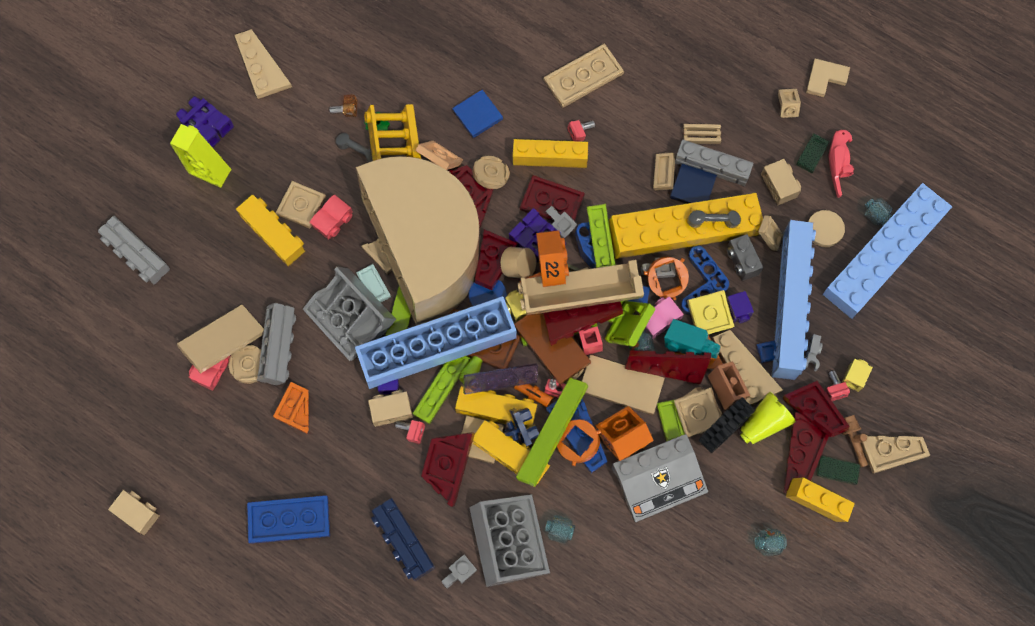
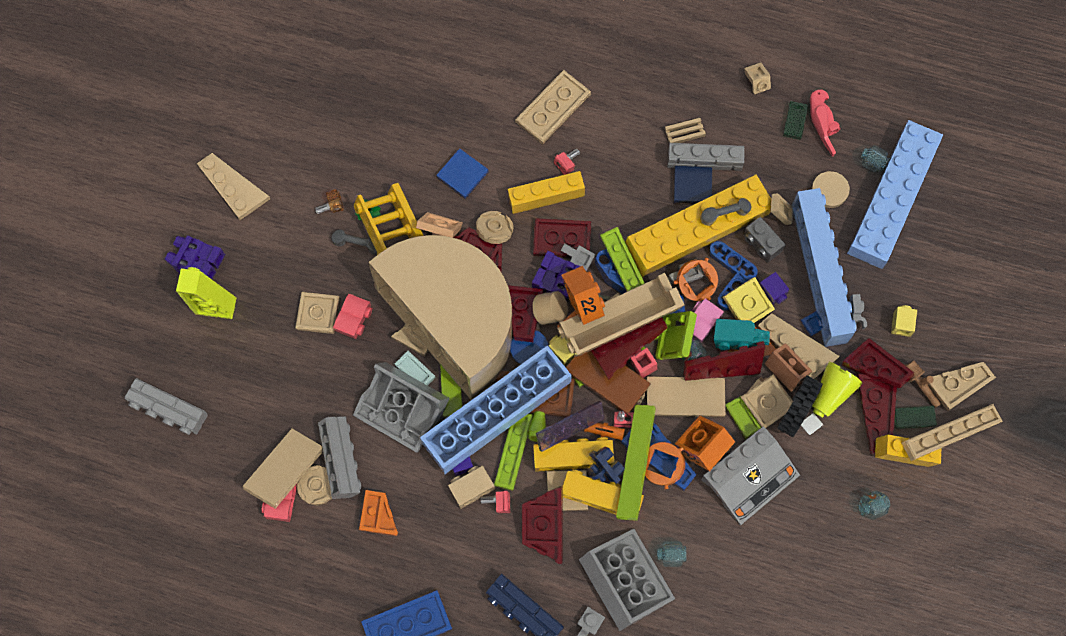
camera: 15 degrees left, 0 degrees up
(270, 230) = (296, 347): yellow brick -> none
(664, 171) = (660, 178): tan tile -> none
(735, 446) = (811, 424): none -> white sticker
(781, 181) = (775, 156): tan brick -> none
(825, 72) = (781, 39): tan tile -> none
(838, 390) = (891, 340): coral piece -> none
(868, 494) = (951, 432): none -> tan tile

